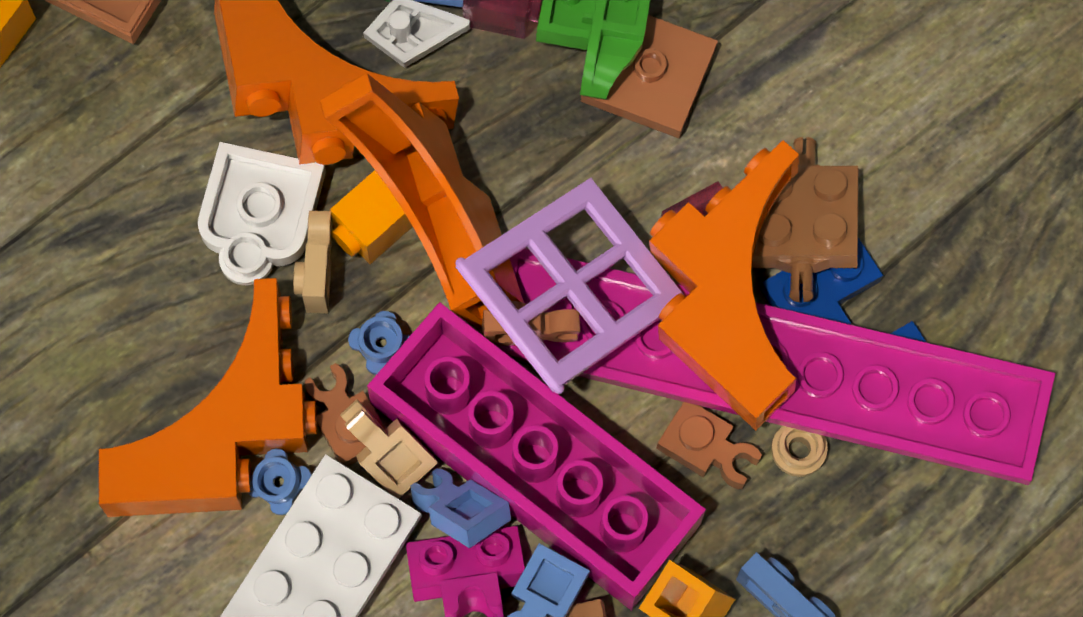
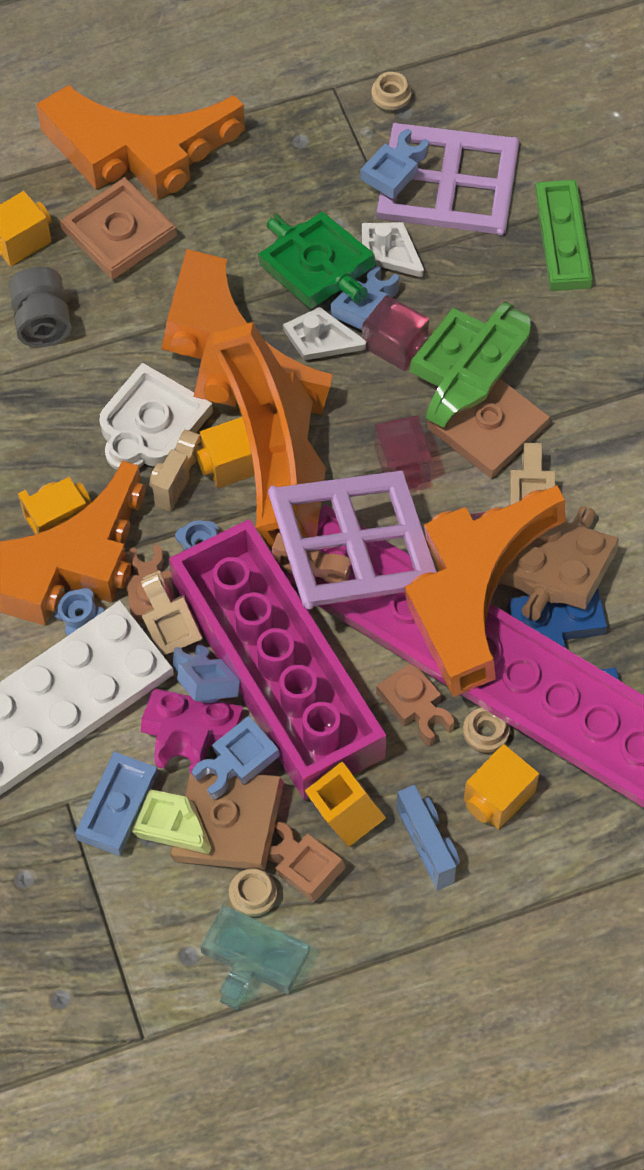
camera: 25 degrees right, 10 degrees down
(62, 107) = (39, 307): none -> dark grey wheel
(195, 363) = (53, 504): none -> light orange brick
(571, 146) = (403, 448): none -> clear pink brick
(732, 136) = (531, 476): none -> tan plate
(845, 514) = (500, 787): none -> light orange brick

